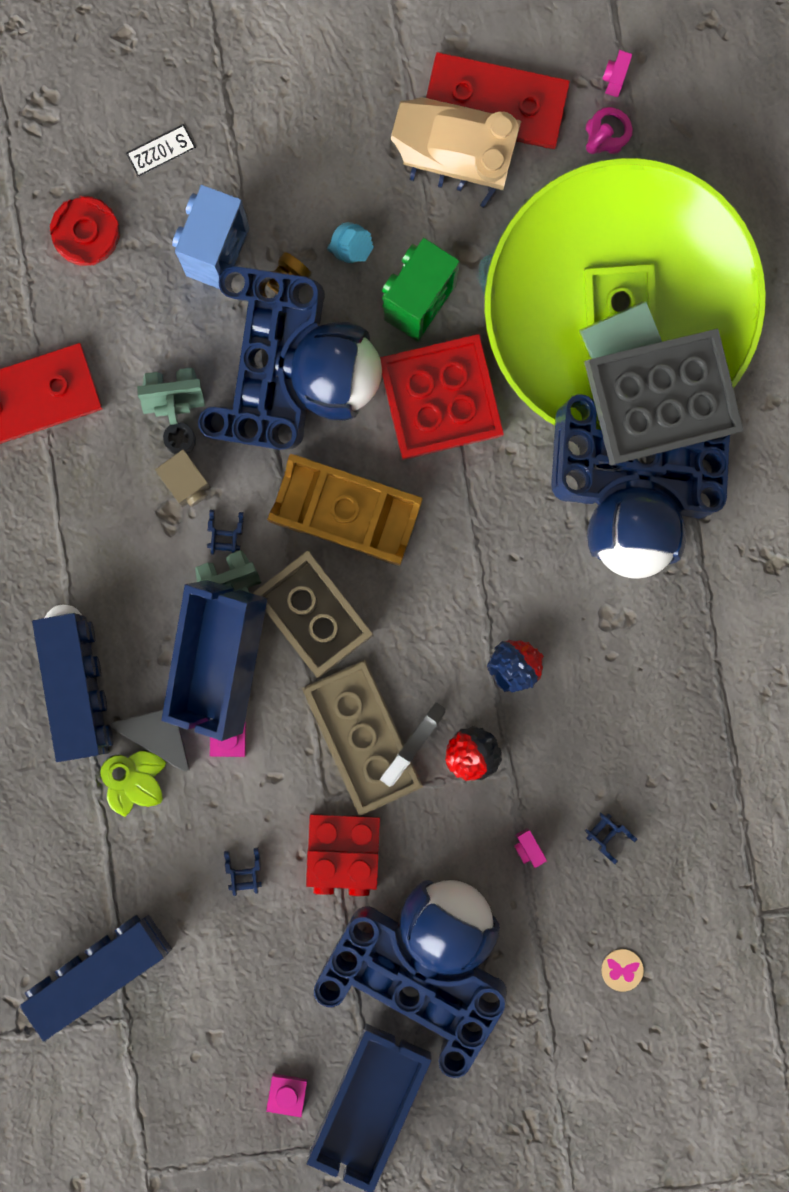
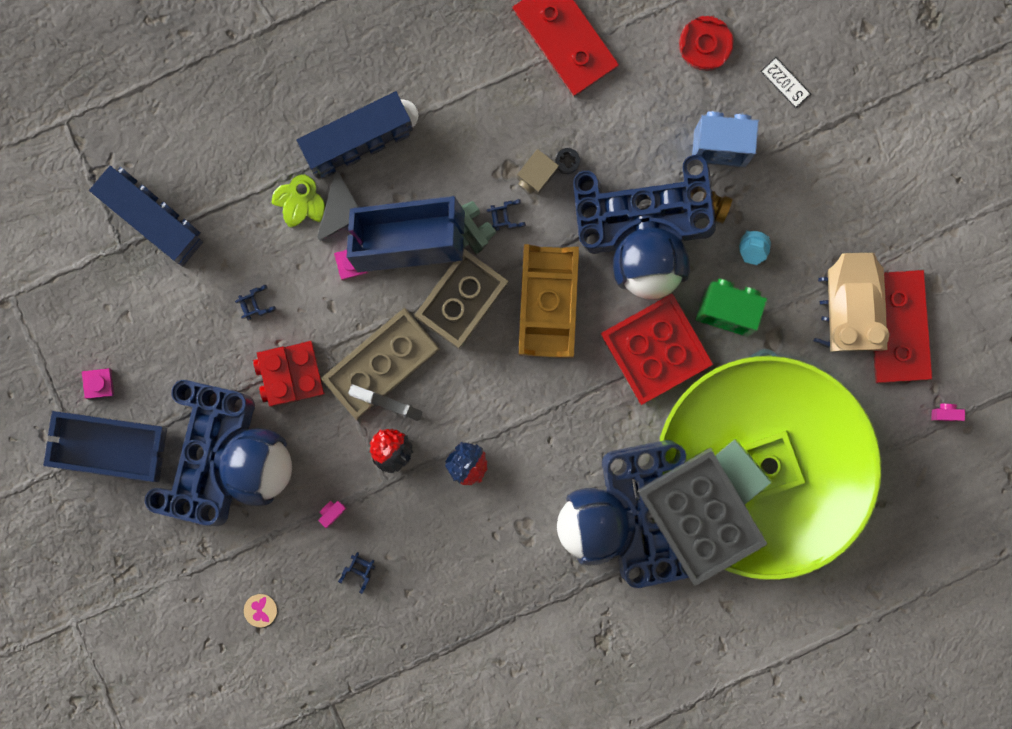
camera: 75 degrees right, 0 degrees up
(171, 397) = (596, 146): sand green hips -> none
(600, 136) = (894, 415): dark pink piece -> none

